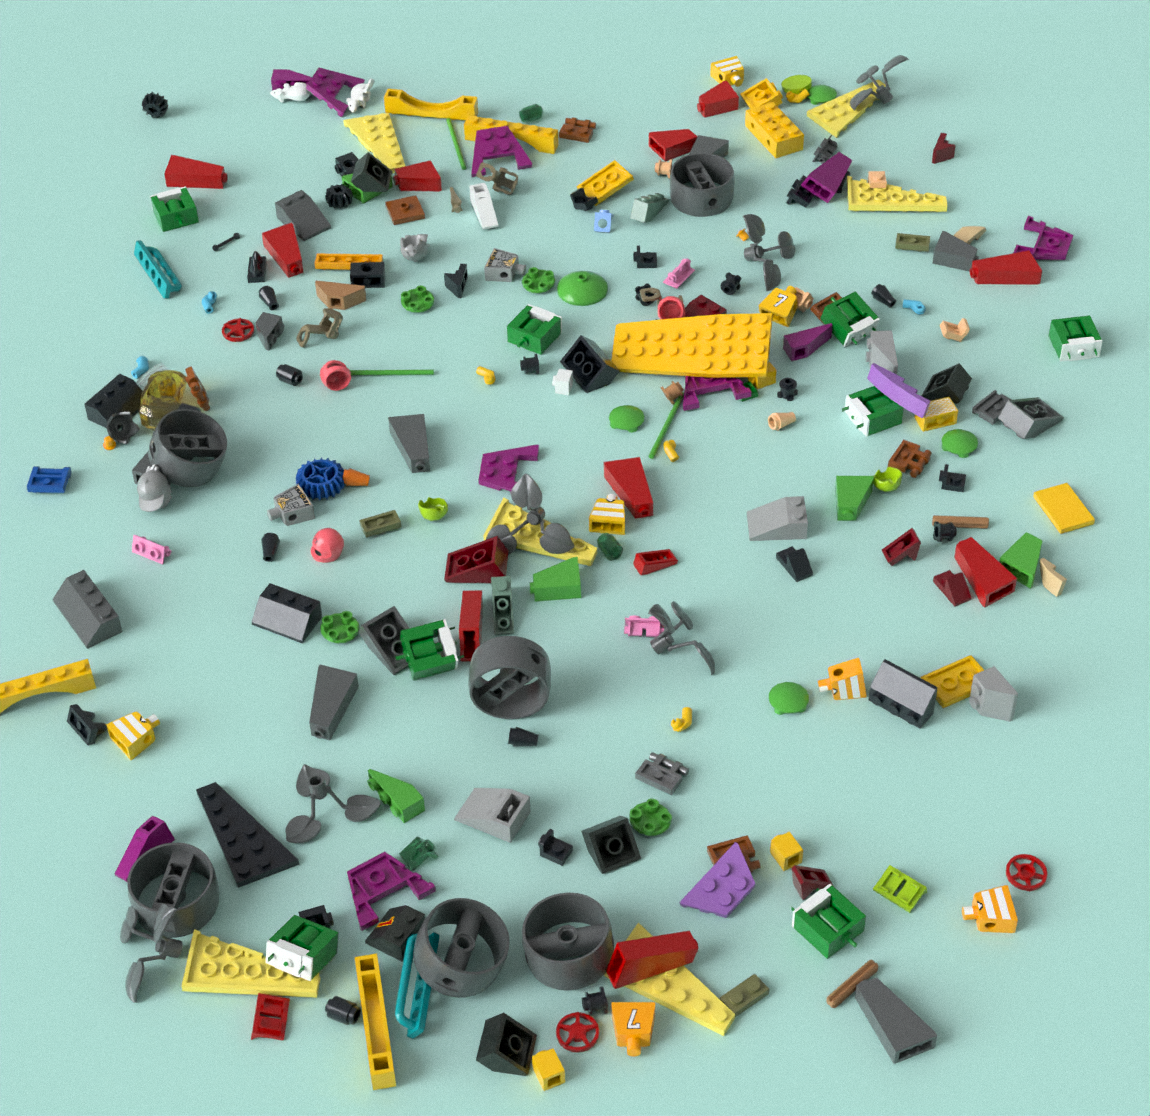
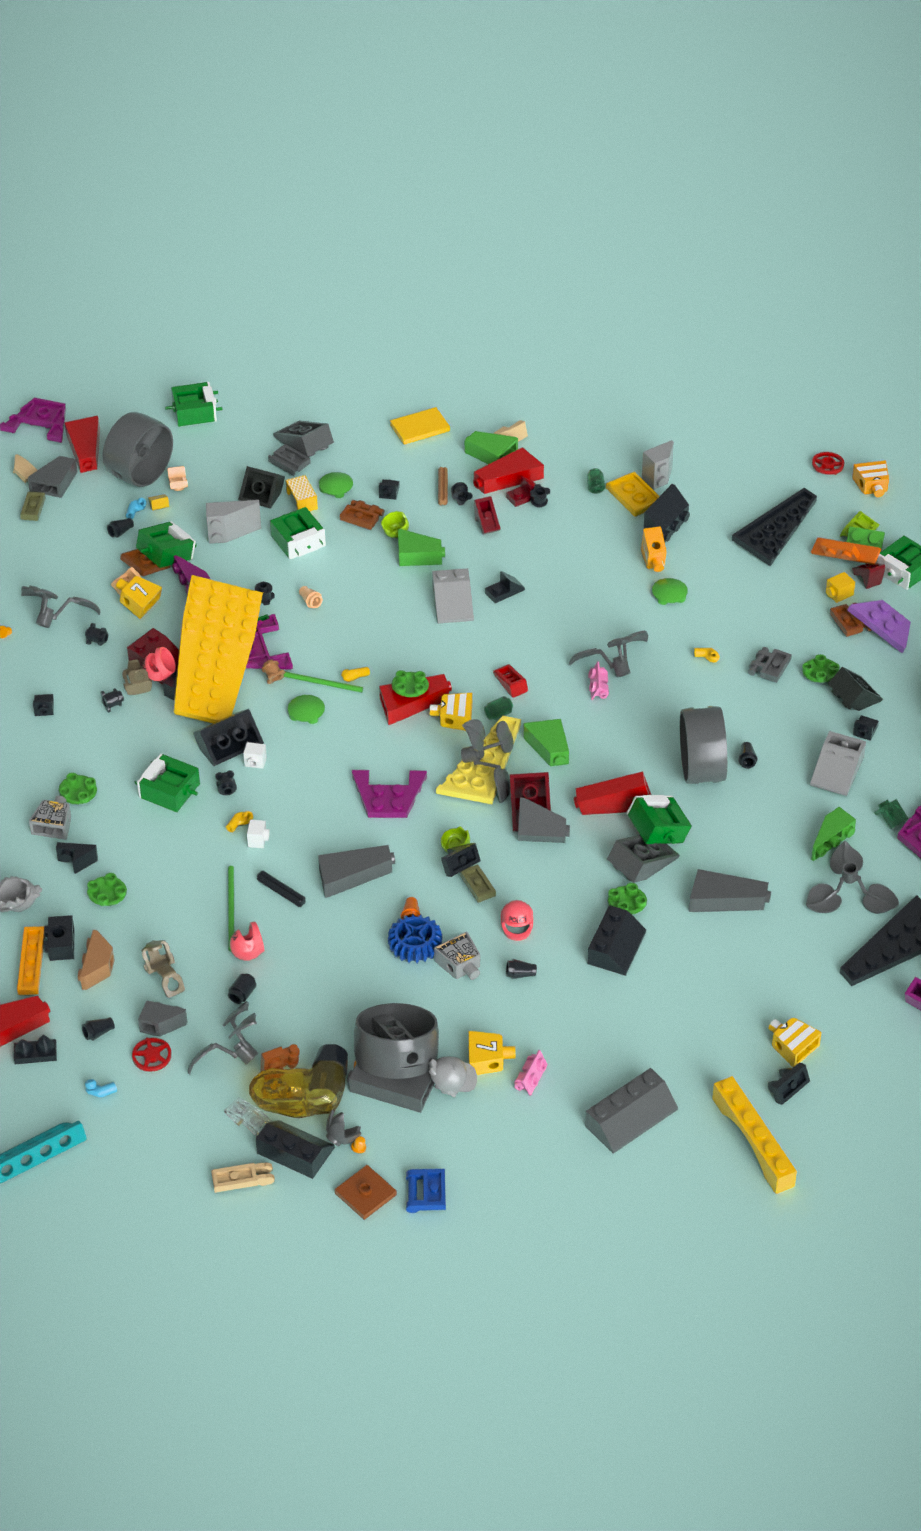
camera: 95 degrees left, 0 degrees up
(61, 446) = (365, 1192): none -> dark orange plate
(97, 374) = (242, 1176): none -> tan hinge
(143, 366) = (224, 1135): medium azure arm -> none
(179, 518) = (488, 1052): none -> yellow torso
(220, 373) = (243, 1048): none -> dark grey plant
(400, 400) = (281, 888): none -> black axle
(402, 505) = (460, 858): none -> black slope
(442, 564) = (540, 824): none -> dark grey slope
(465, 383) = (257, 834): none -> white plate
(502, 605) = (574, 776): sand green slope -> none
(582, 288) = (88, 755): bright green dish -> none
(634, 473) = (410, 683): none -> bright green dish
(679, 274) = (73, 676): bright pink hinge -> none
(841, 853) = (846, 550): none -> orange bracket
(867, 885) = (866, 537): none -> bright green bracket
(893, 799) = (772, 530): none -> black wing
(895, 388) = (288, 505): slope -> none
(925, 321) = (159, 502): none -> yellow slope
(939, 593) = (539, 496): none -> black brick
(958, 289) = (138, 449): none -> dark grey cylinder
(971, 644) = (595, 481): none -> clear green brick

